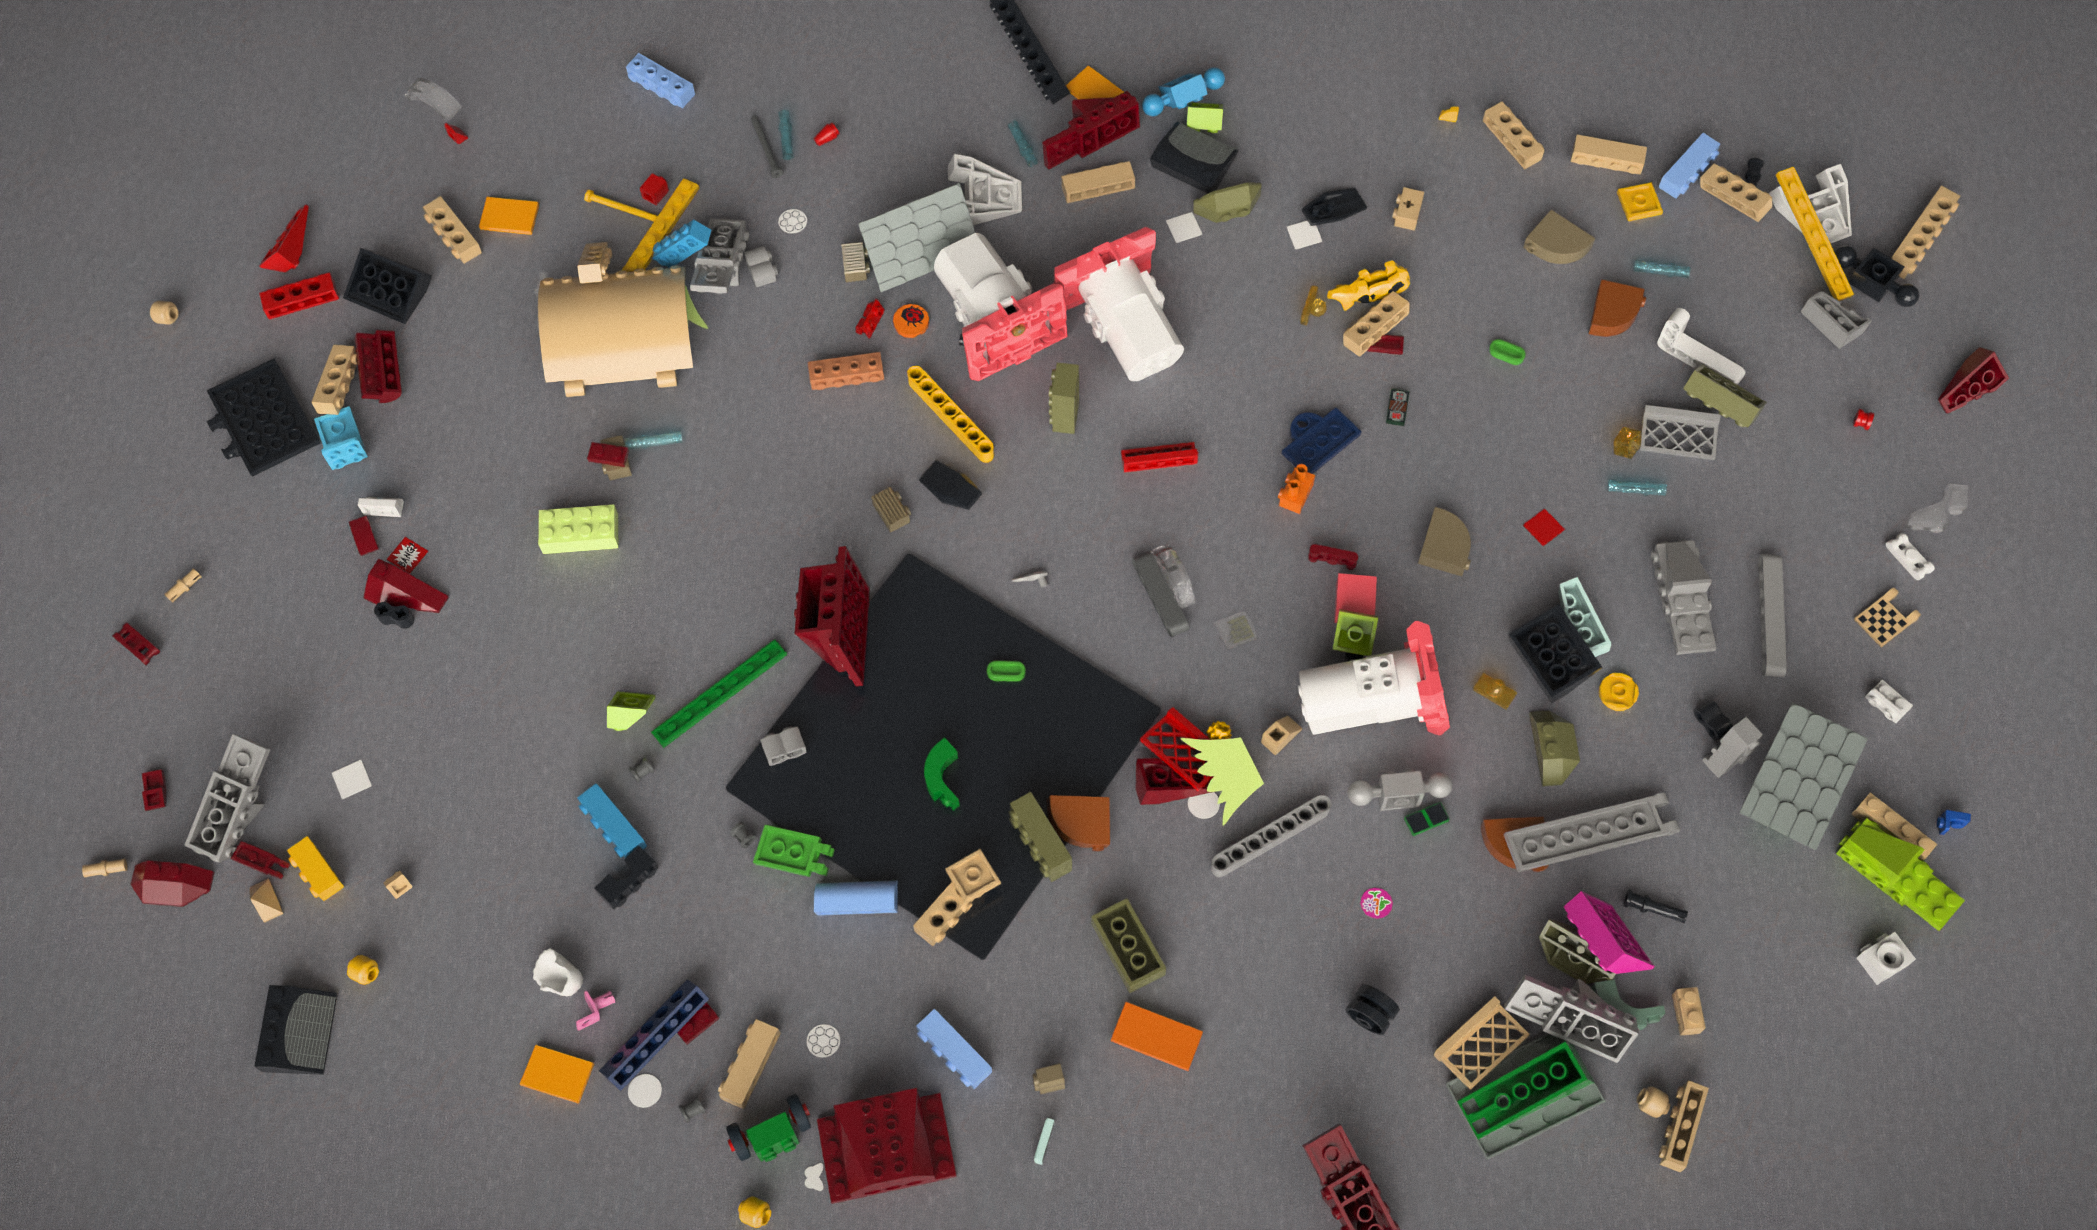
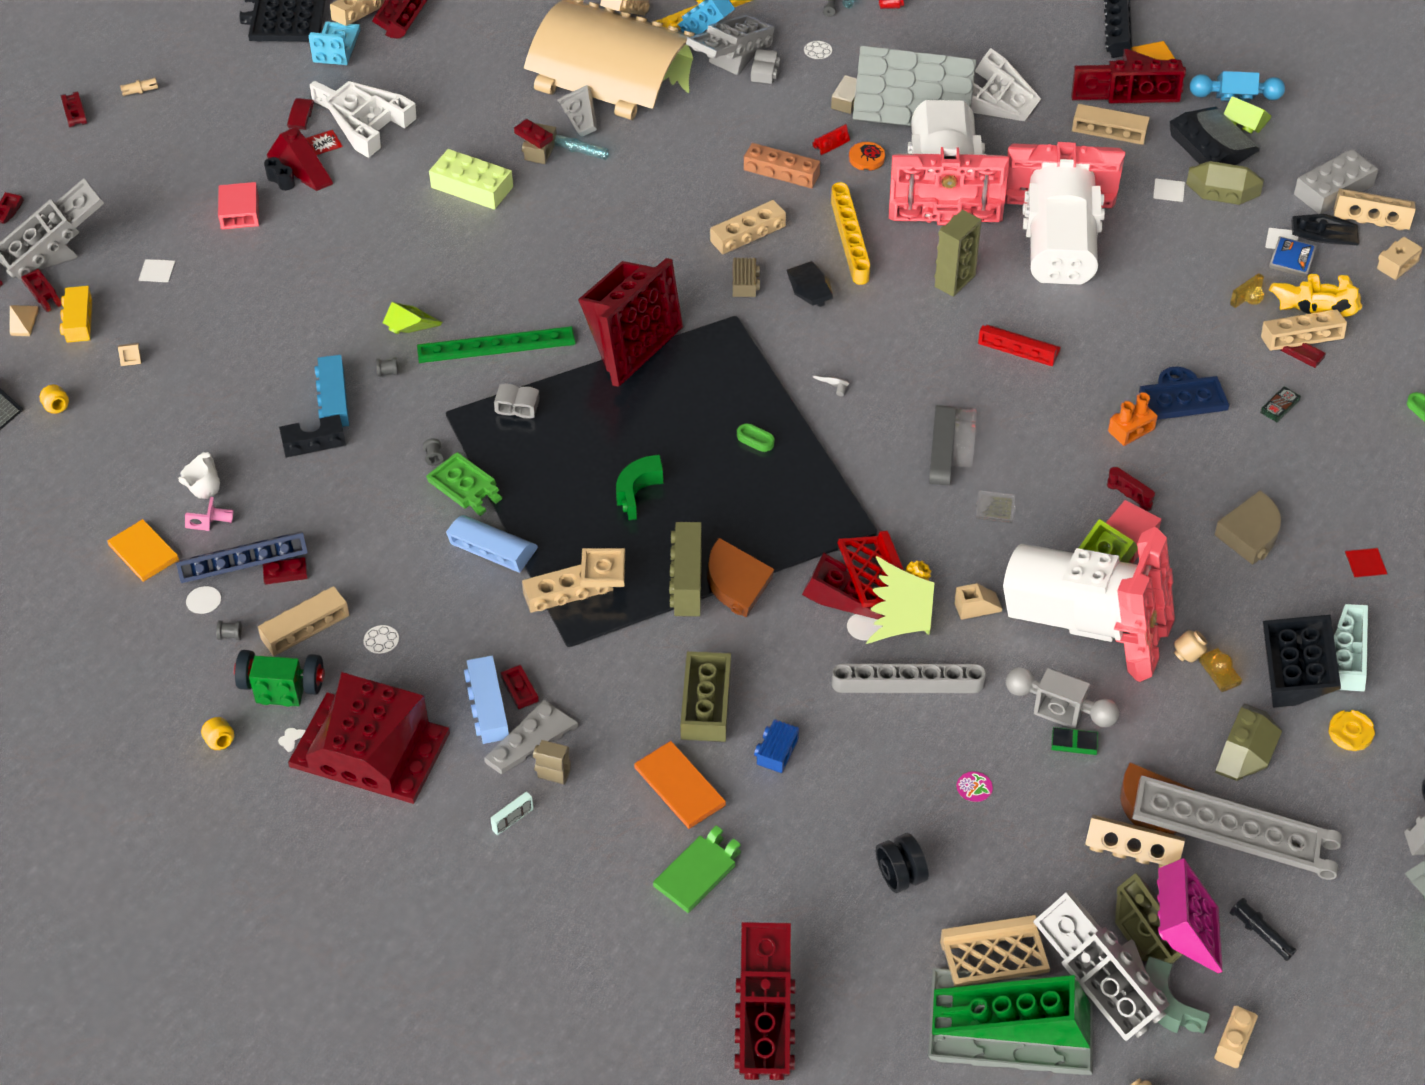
camera: 30 degrees right, 15 degrees down
(380, 670) = (238, 205): none -> coral brick
(428, 506) = (365, 110): none -> white wedge
(626, 400) = (580, 110): none -> light grey wing
(850, 459) = (747, 227): none -> tan brick
(971, 1021) = (519, 687): none -> dark red plate
(1011, 1053) = (541, 724): none -> light grey wing
(1025, 149) = (1061, 75): clear light blue pin -> none
(1210, 957) = (777, 746): none -> blue brick
(1218, 1104) = (698, 870): none -> bright green tile
(1316, 153) = (1321, 185): none -> light grey brick
(1324, 249) = (1292, 256): none -> slope
(1363, 168) = (1385, 205): none -> tan brick
(1464, 684) = (1190, 646): none -> tan head
(1496, 888) = (1148, 837): none -> tan brick

